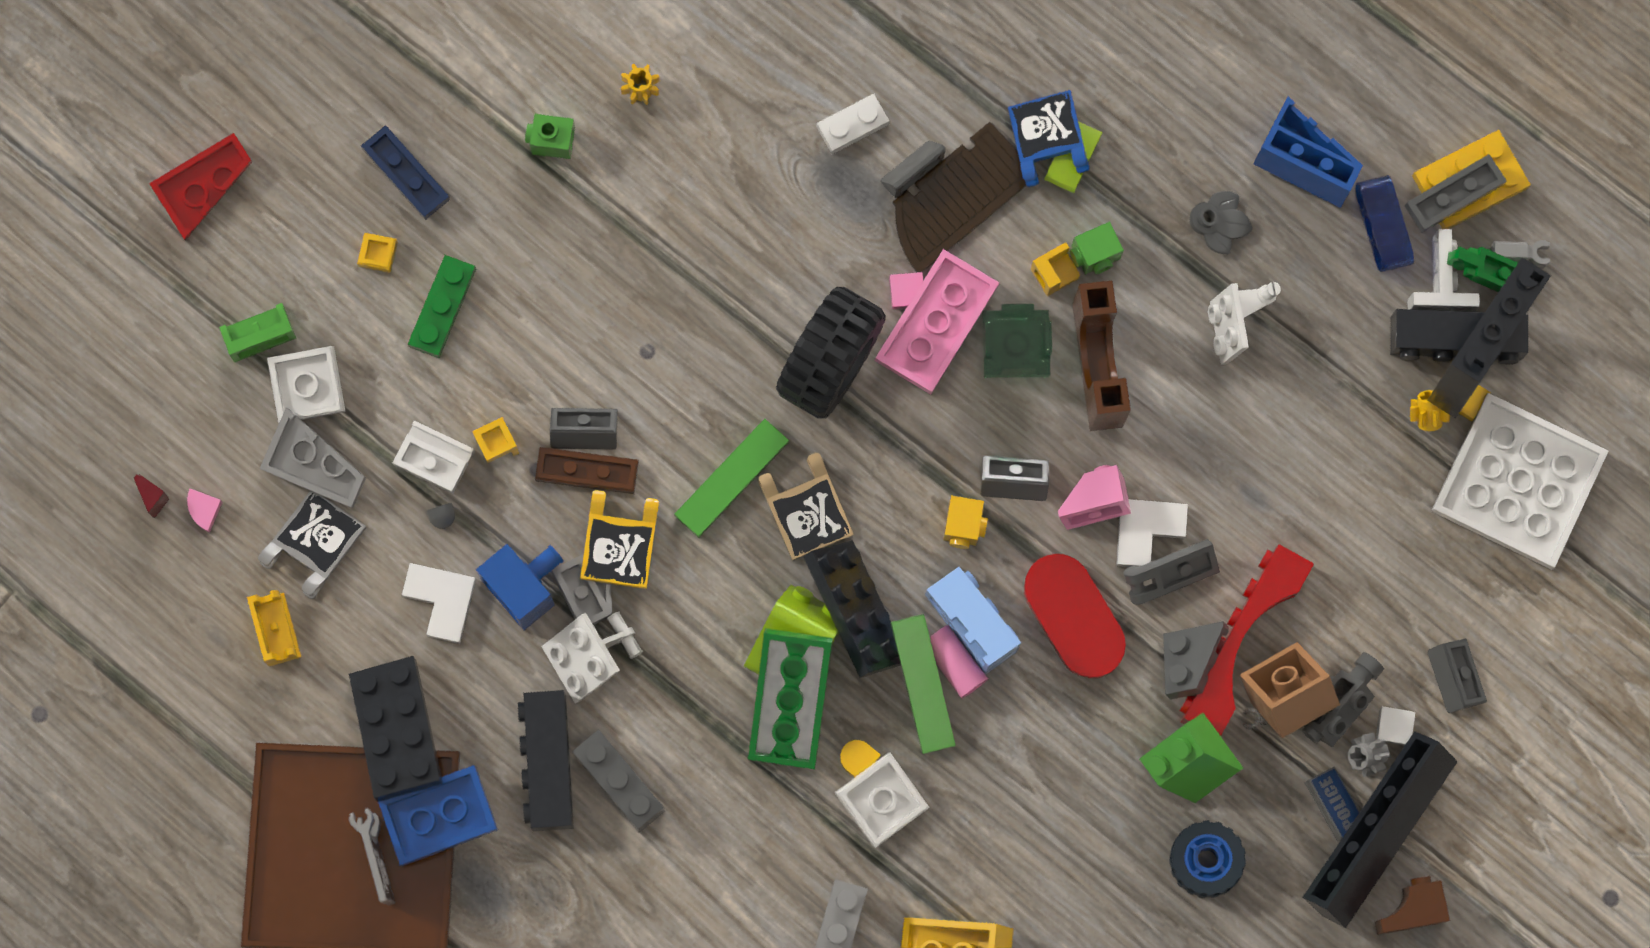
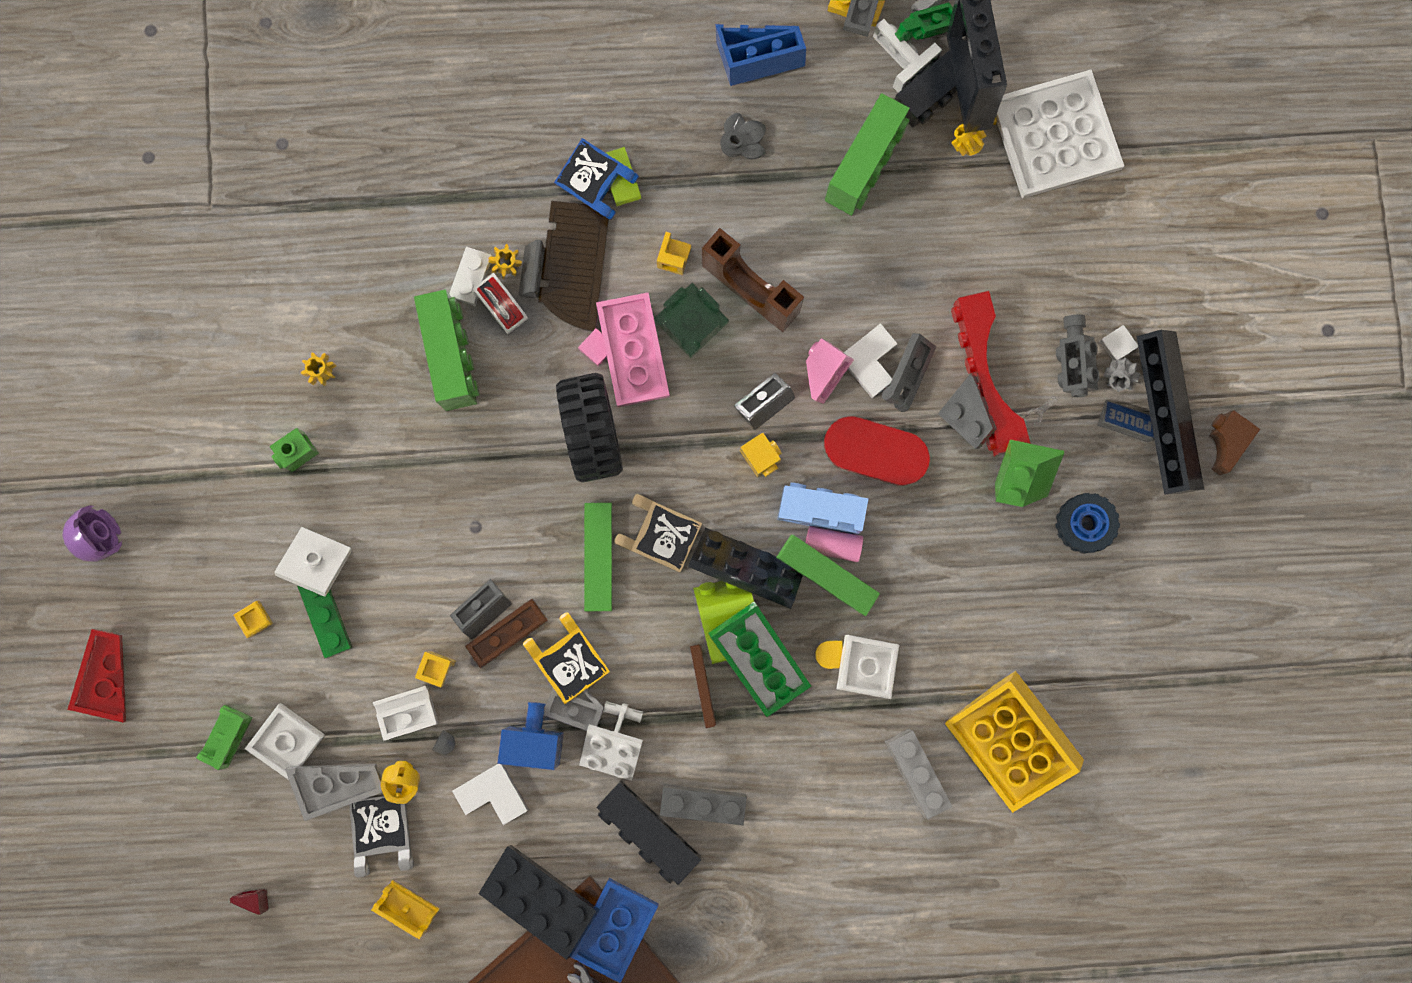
camera: 40 degrees left, 5 degrees up
(203, 508) = (293, 877): bright pink tile -> none
(309, 50) = (91, 534): none -> medium lavender cylinder
(378, 510) = (400, 776): none -> yellow piece
(405, 172) = (223, 554): dark blue plate -> none
(477, 249) = (313, 561): none -> white plate
(717, 677) = (703, 687): none -> reddish brown tile
(767, 171) = (446, 351): none -> bright green brick
(856, 172) = (500, 303): none -> slope
(888, 143) = (506, 254): none -> yellow gear
(1096, 249) = (686, 219): bright green brick -> none
(1228, 315) = (804, 189): white plate -> none
(1290, 689) = (1045, 378): medium nougat brick -> none
(1317, 339) = (868, 155): none -> bright green brick
(1384, 223) = (840, 52): clear blue beam -> none
(1456, 675) = (1125, 282): dark grey slope -> none

